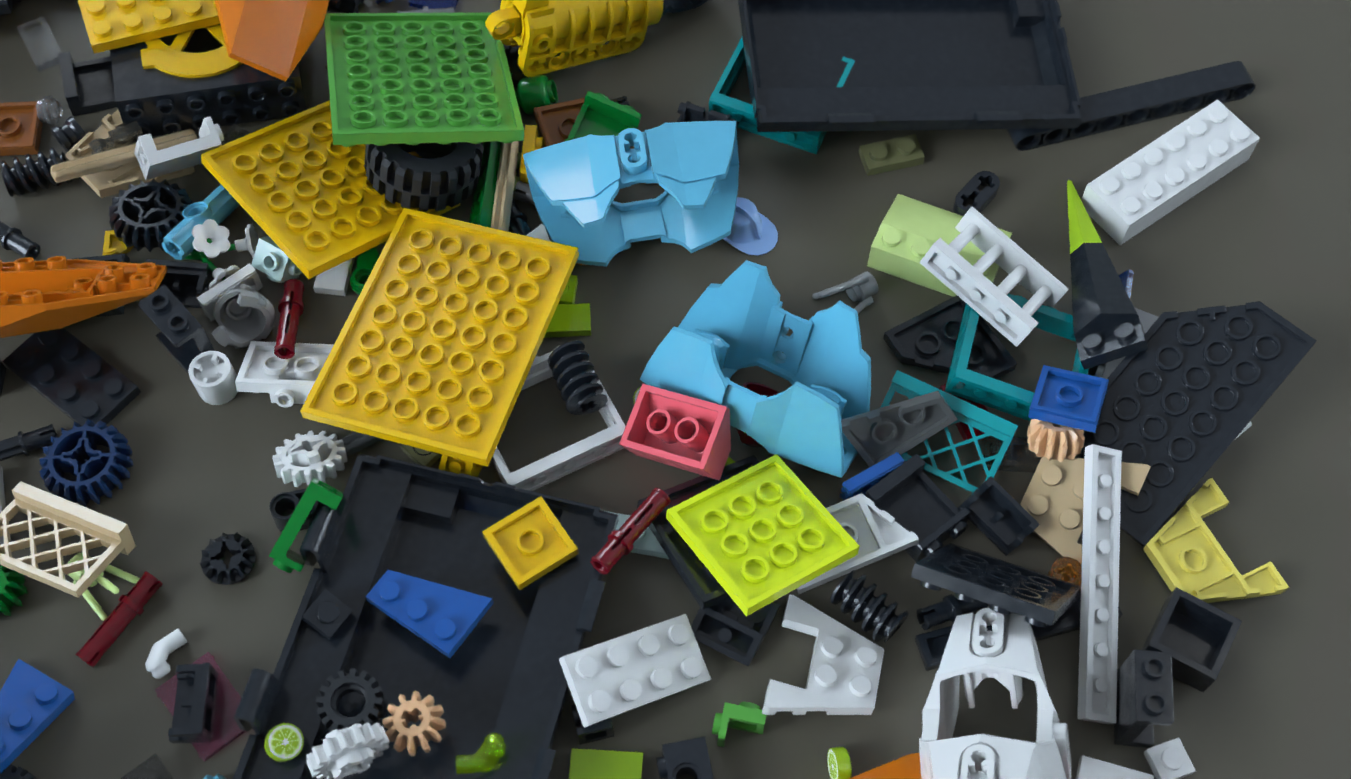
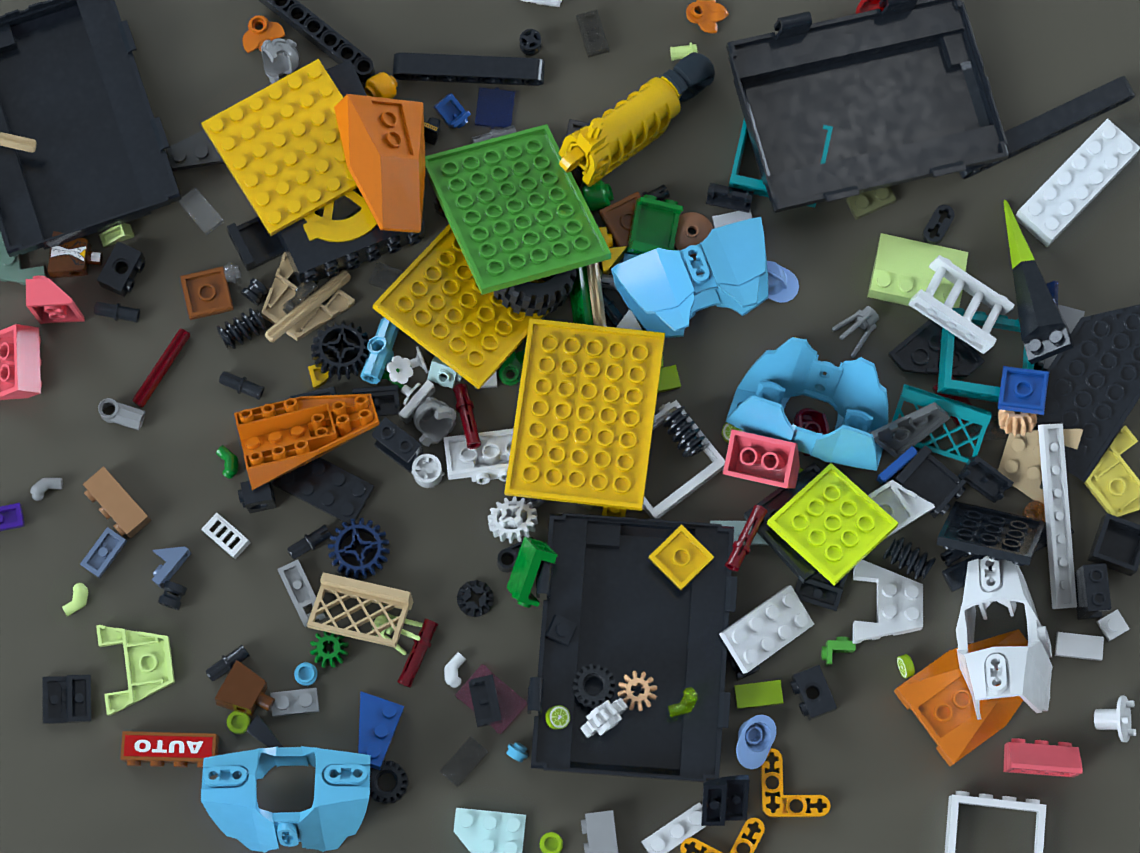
camera: 10 degrees left, 15 degrees up
(177, 157) = (340, 312): white panel -> none
(429, 609) = (625, 614): blue wing -> none

